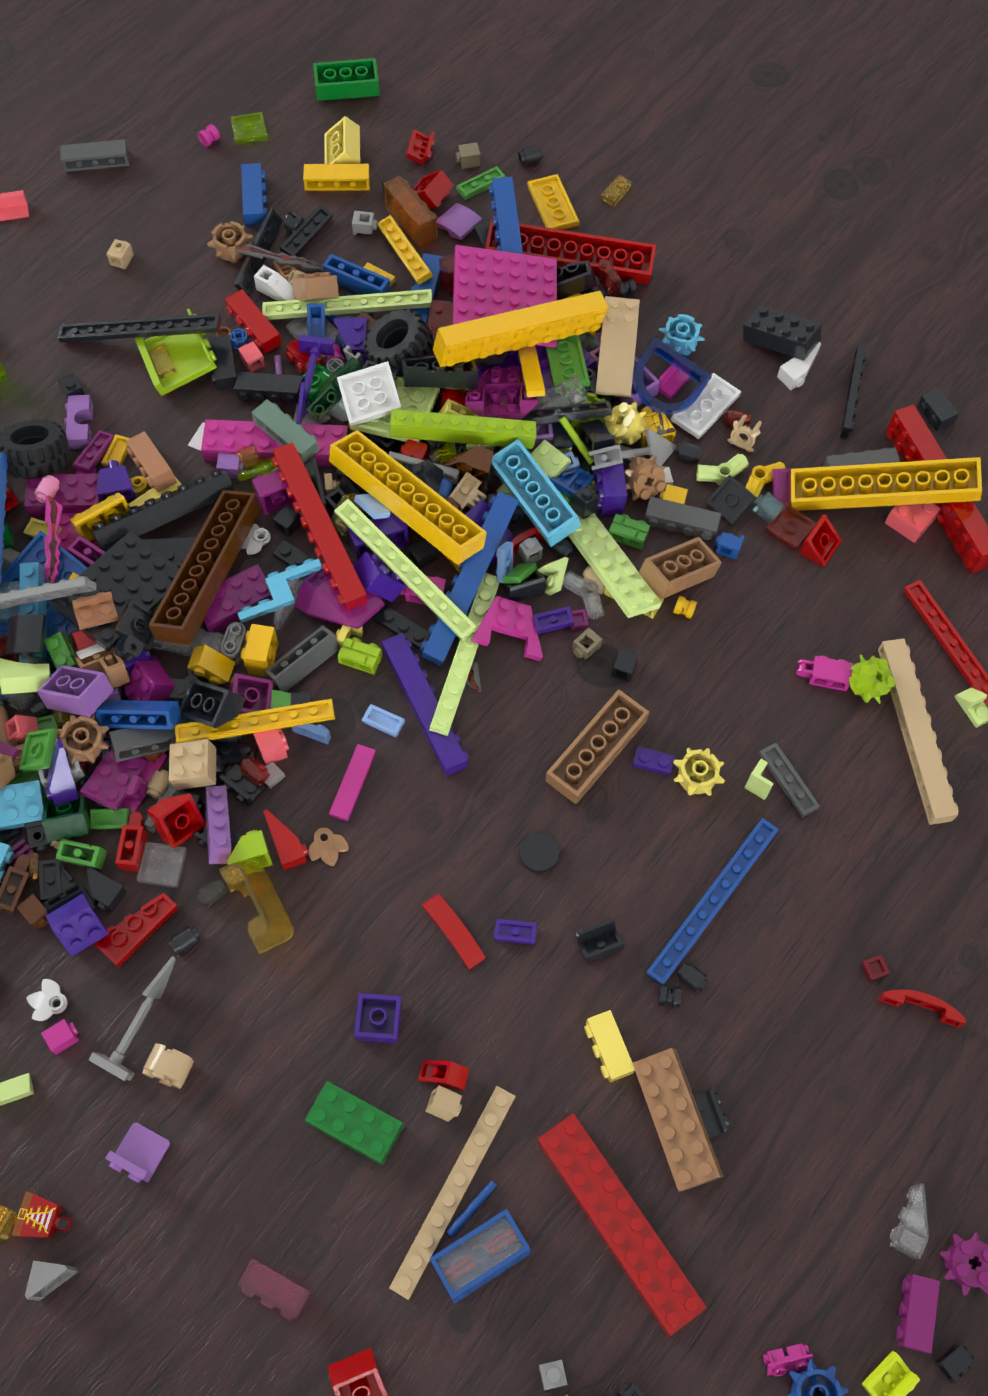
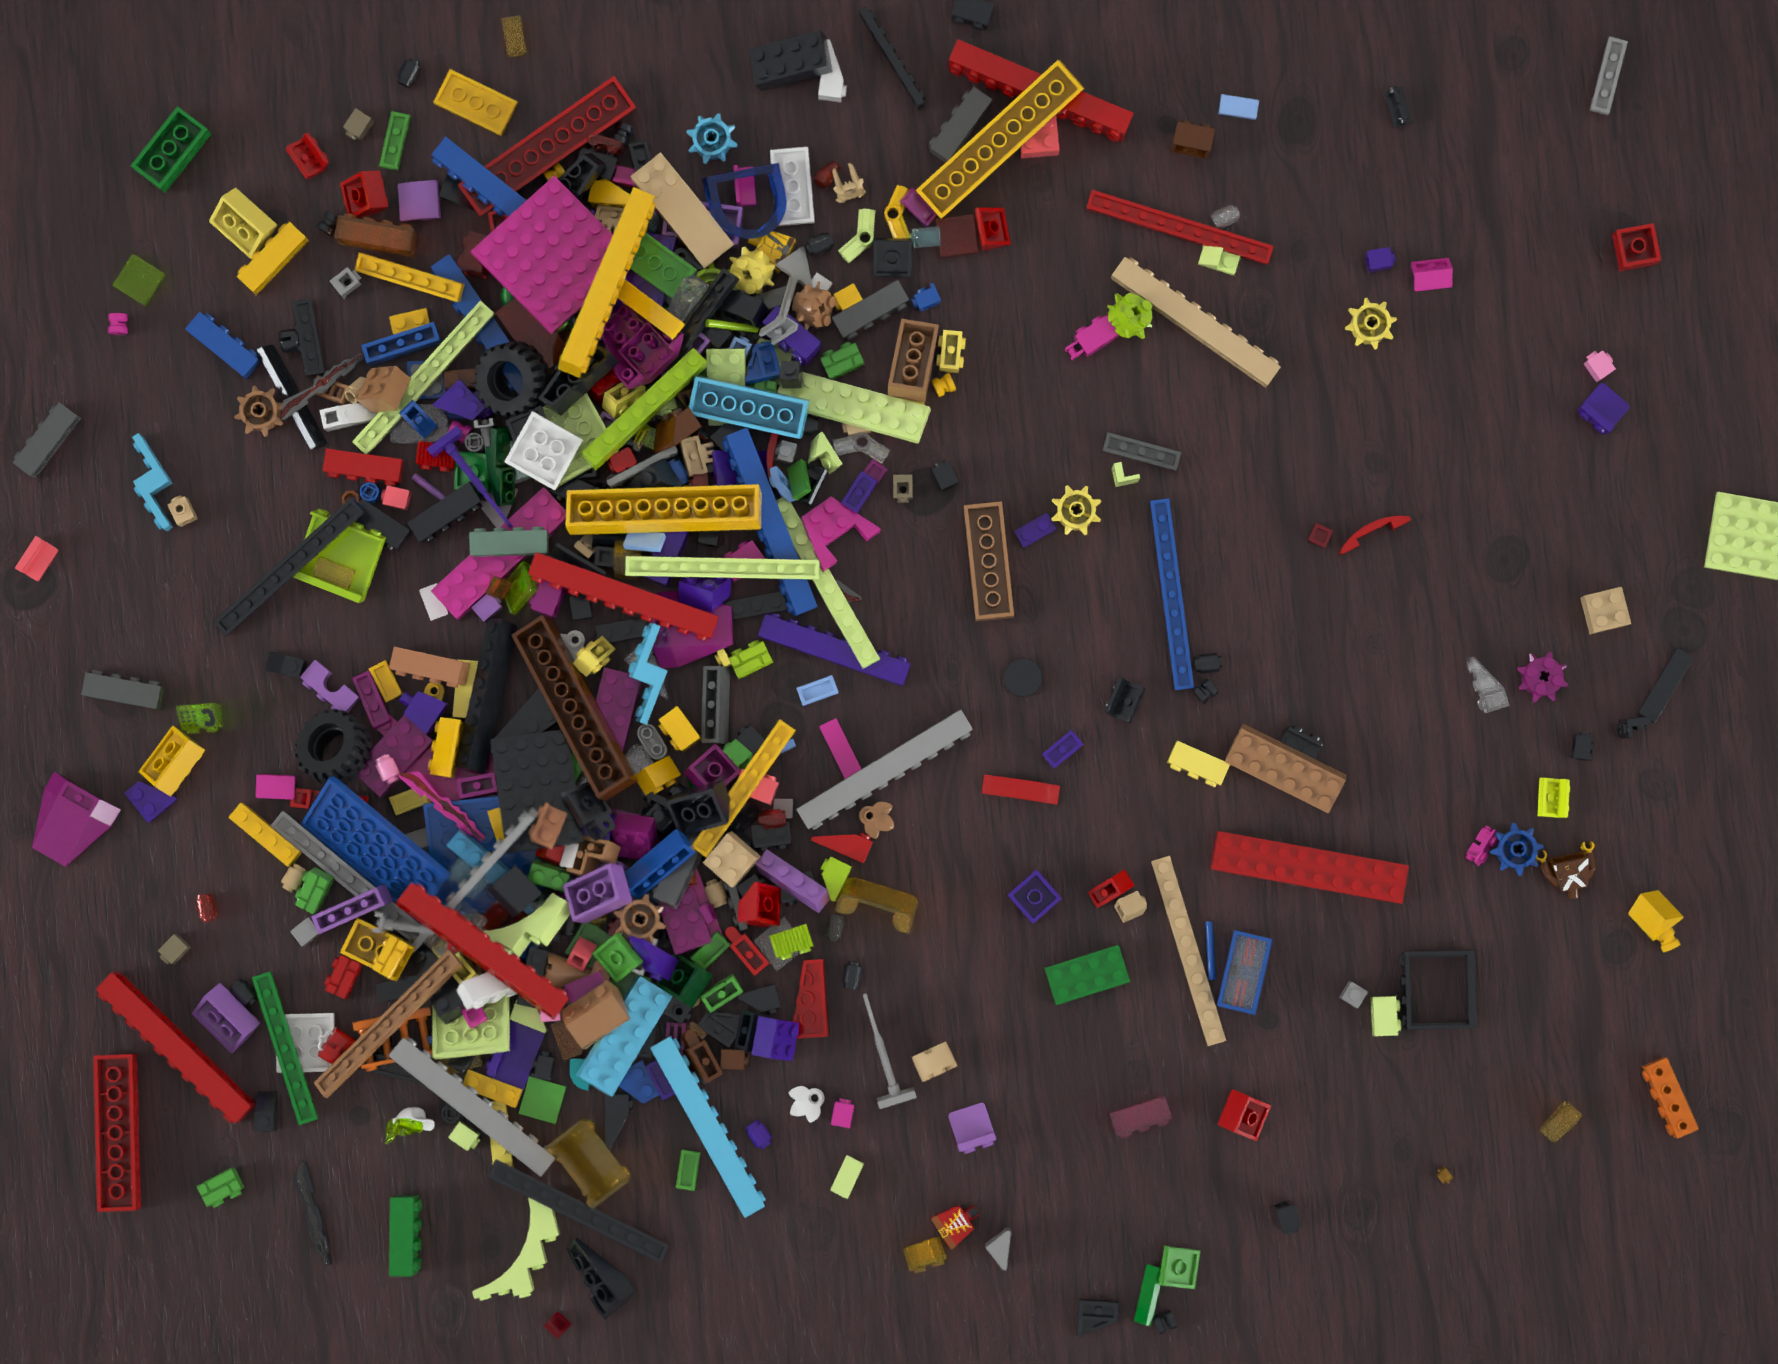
camera: 40 degrees left, 20 degrees up
(123, 225) = (151, 482): none -> medium azure bracket
(169, 867) = (791, 941): none -> lime brick
(259, 551) = (593, 656): none -> light yellow brick
(369, 815) = (884, 769): none -> light grey brick
(712, 589) = (950, 354): none -> light yellow brick
(918, 1313) = (1535, 739): magenta brick -> none

